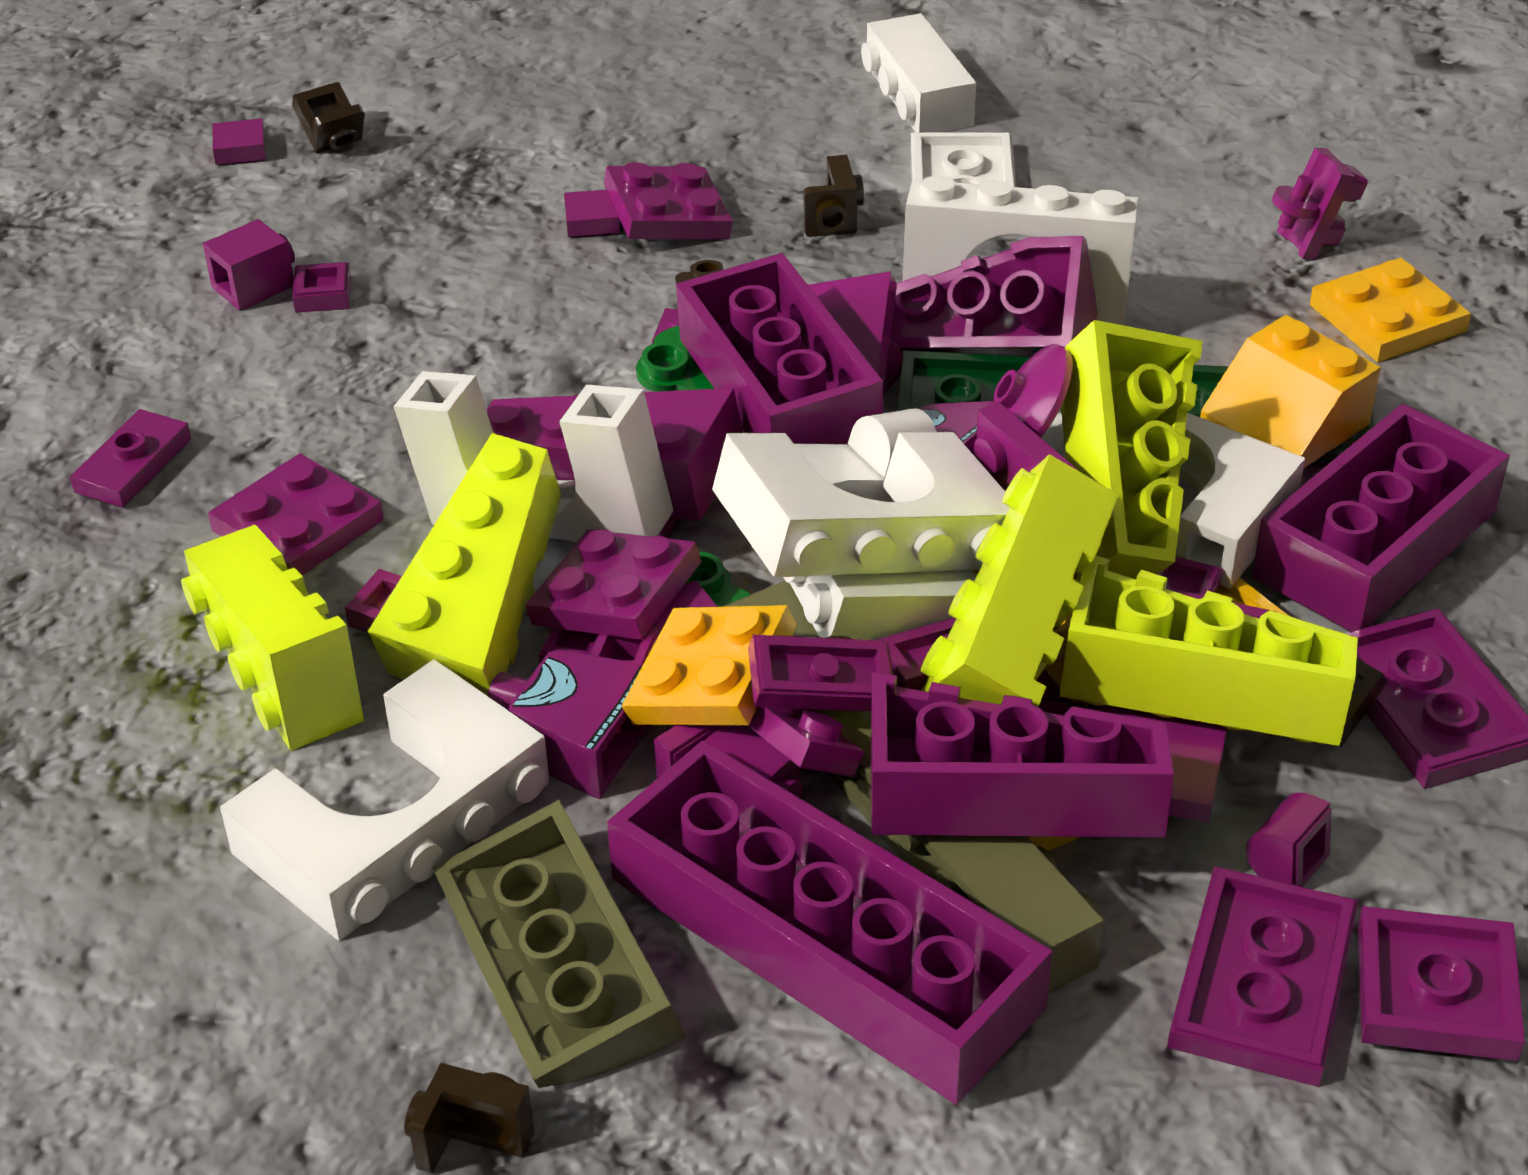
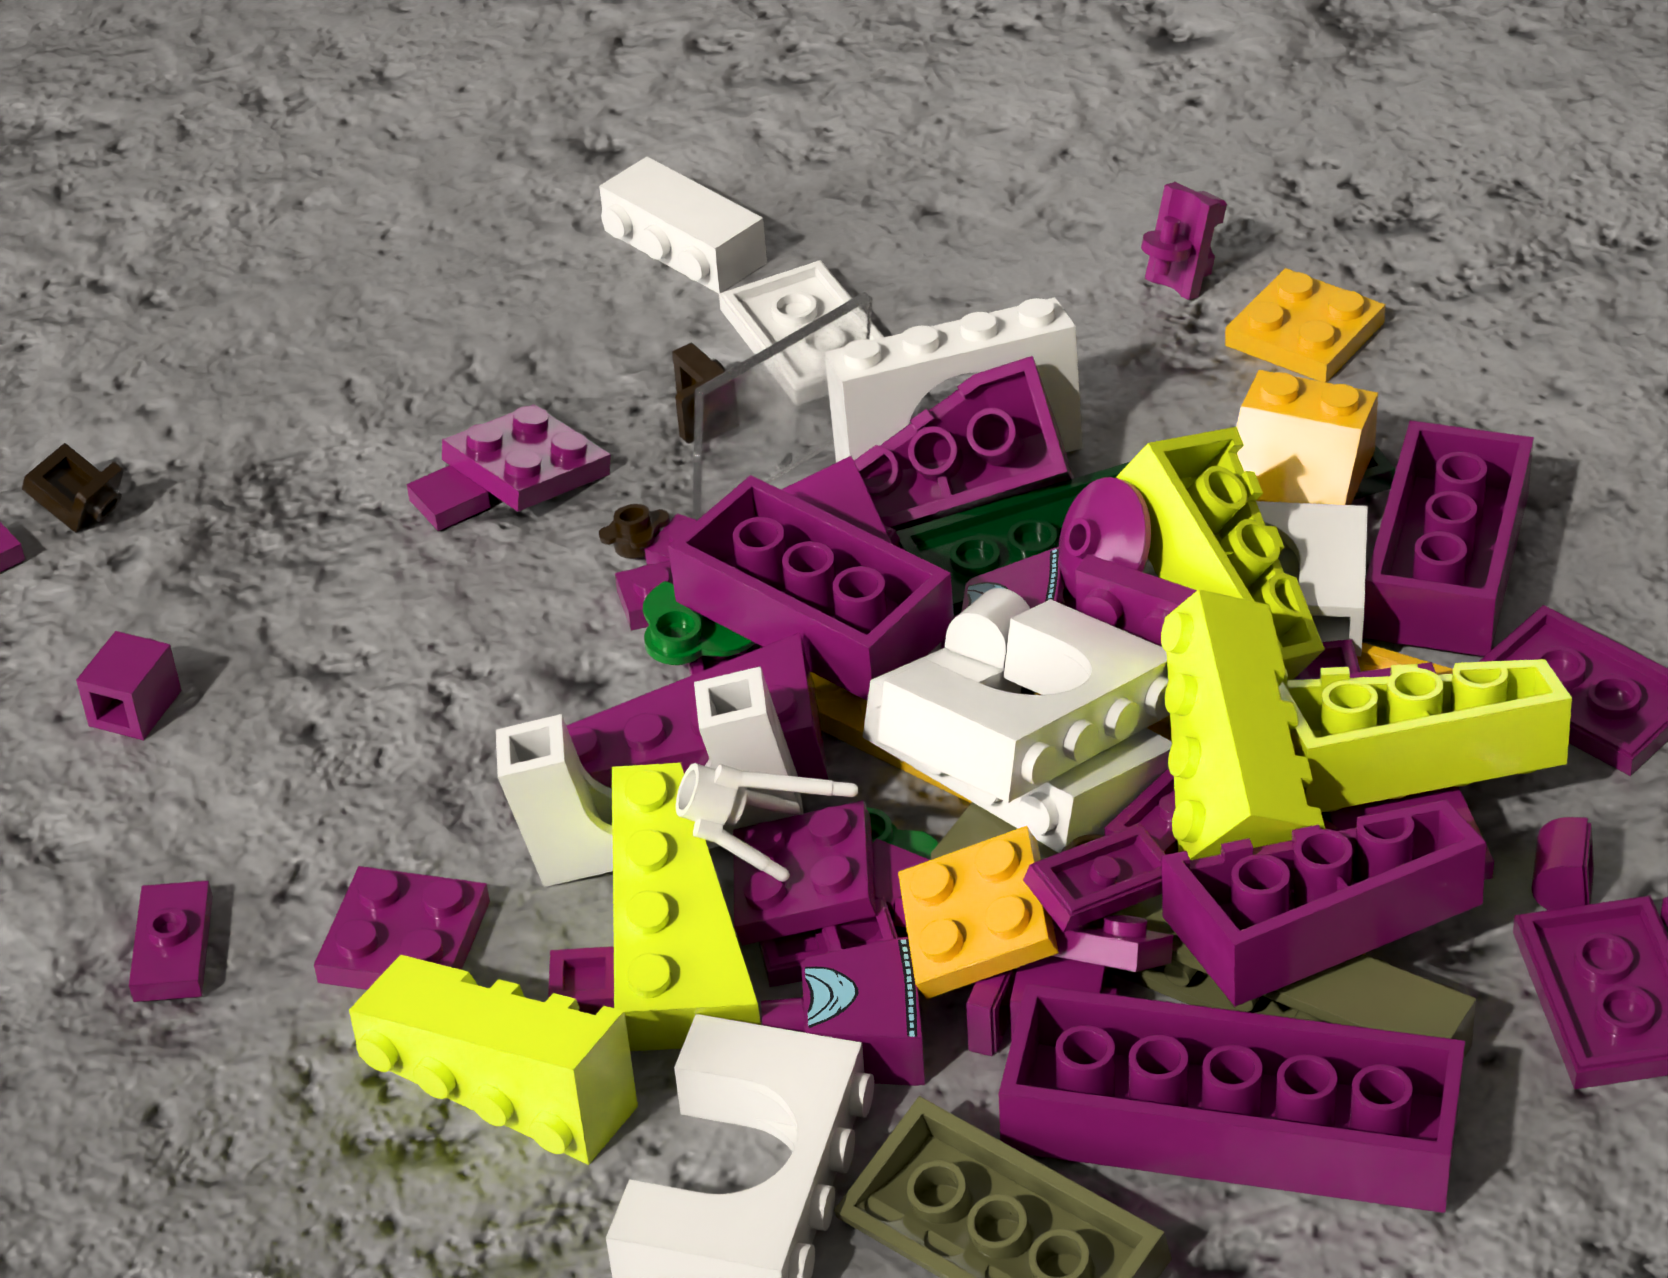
camera: 25 degrees left, 0 degrees up
(322, 287) = (220, 681): magenta tile -> none
(549, 483) = (720, 796): none -> white plant
(849, 210) = (770, 407): none -> clear piece

